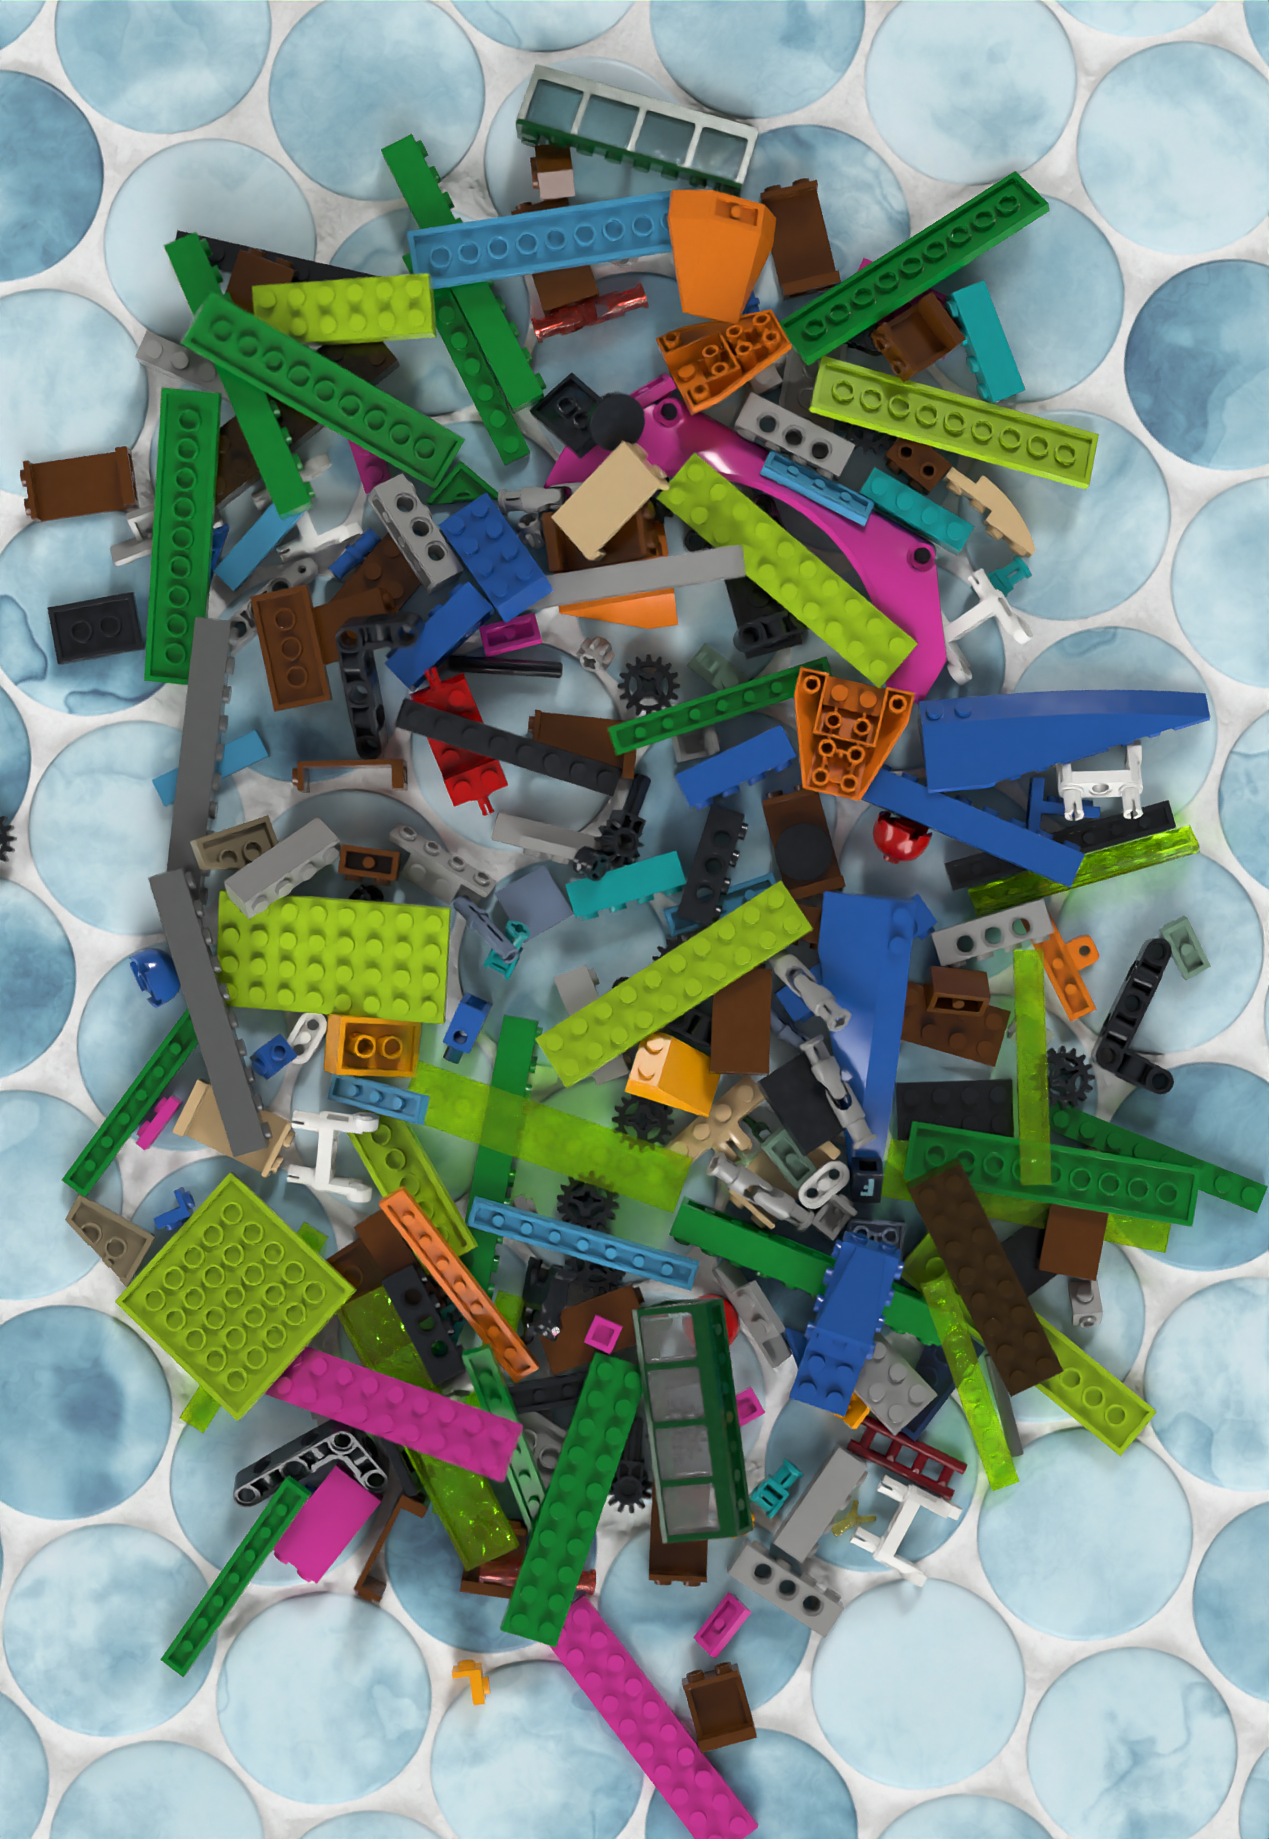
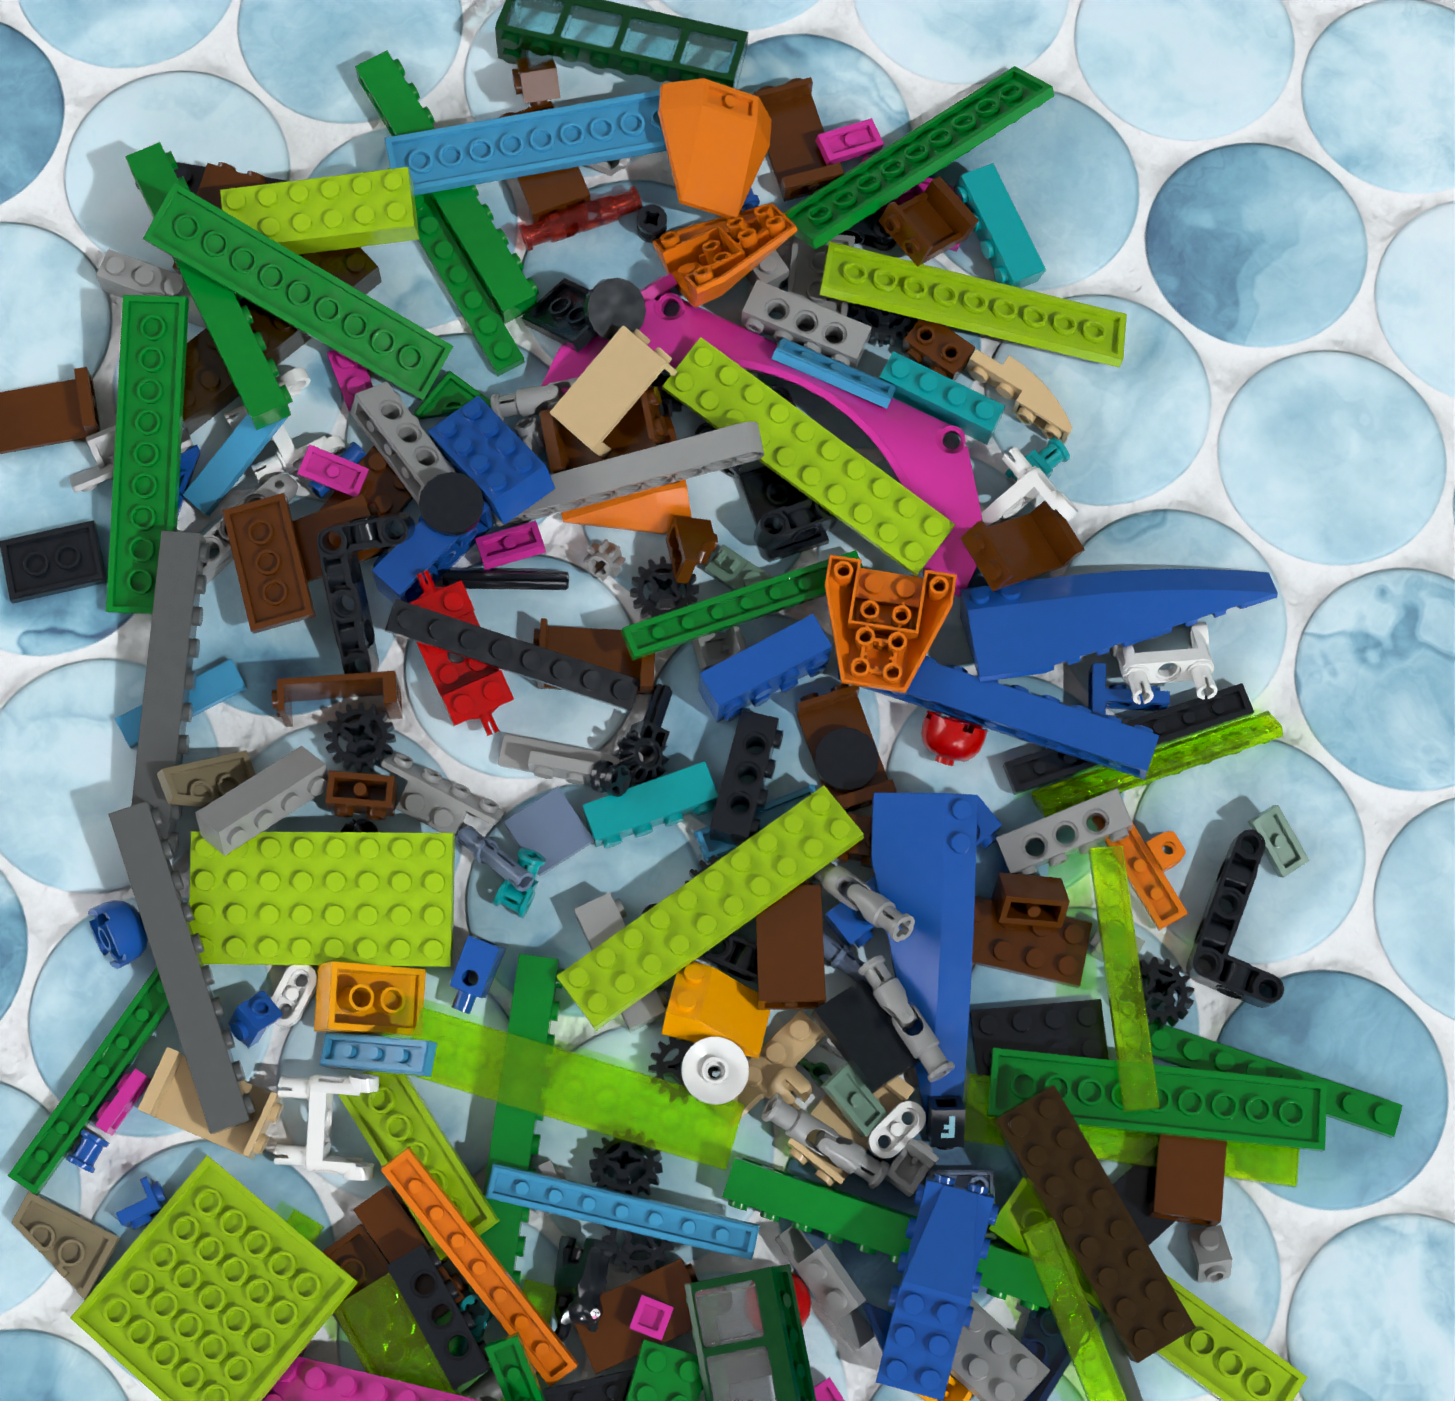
camera: 10 degrees left, 15 degrees down
(128, 1162) = (87, 1151): none -> blue bush
(351, 561) = (333, 471): none -> dark pink plate
(376, 797) = (365, 725): none -> black gear
(458, 605) = (451, 504): none -> black tile
(657, 325) = (650, 230): none -> black wheel
(673, 644) = (689, 544): none -> reddish brown arch
(684, 1131) = (716, 1053): none -> white dish
(849, 245) = (849, 142): none -> dark pink plate
(976, 665) = (1022, 546): none -> reddish brown panel

